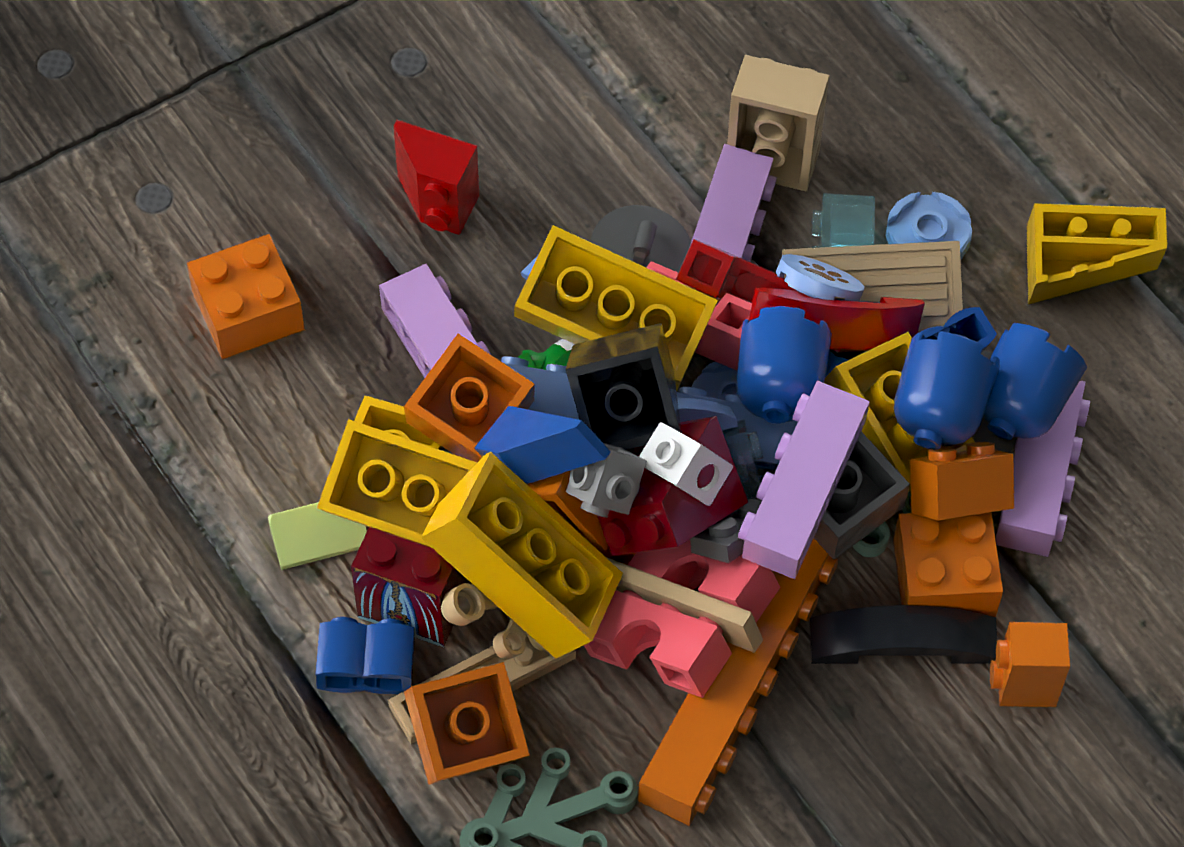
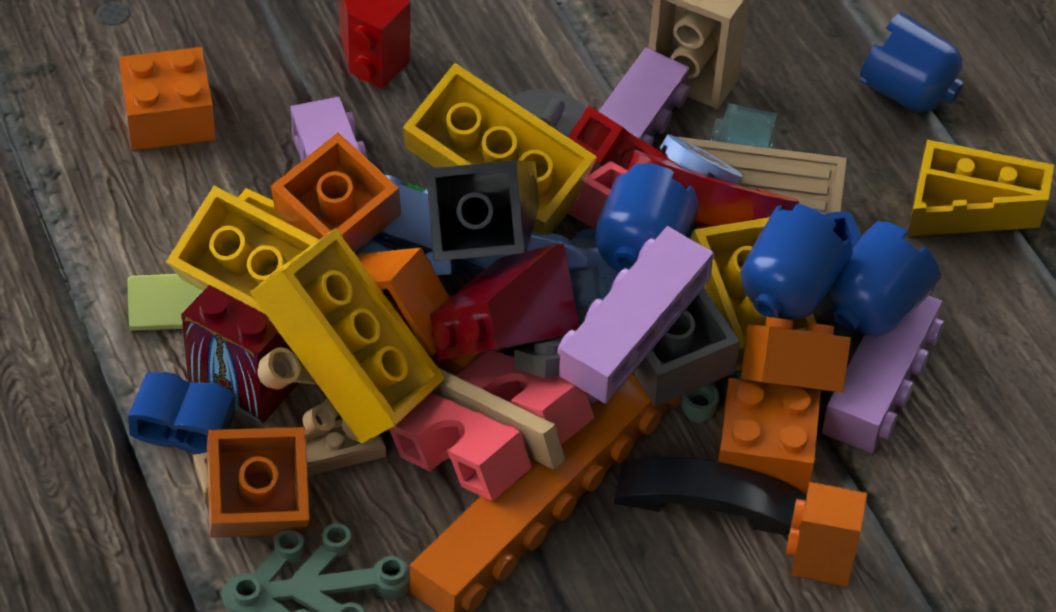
camera: 10 degrees right, 10 degrees down
(541, 443) = (389, 231): blue slope -> none
(608, 483) = (441, 274): light grey brick -> none
(681, 460) = (514, 267): white bracket -> none
(929, 219) = (832, 142): light blue tile -> none
(1001, 114) = (914, 66): none -> blue cylinder

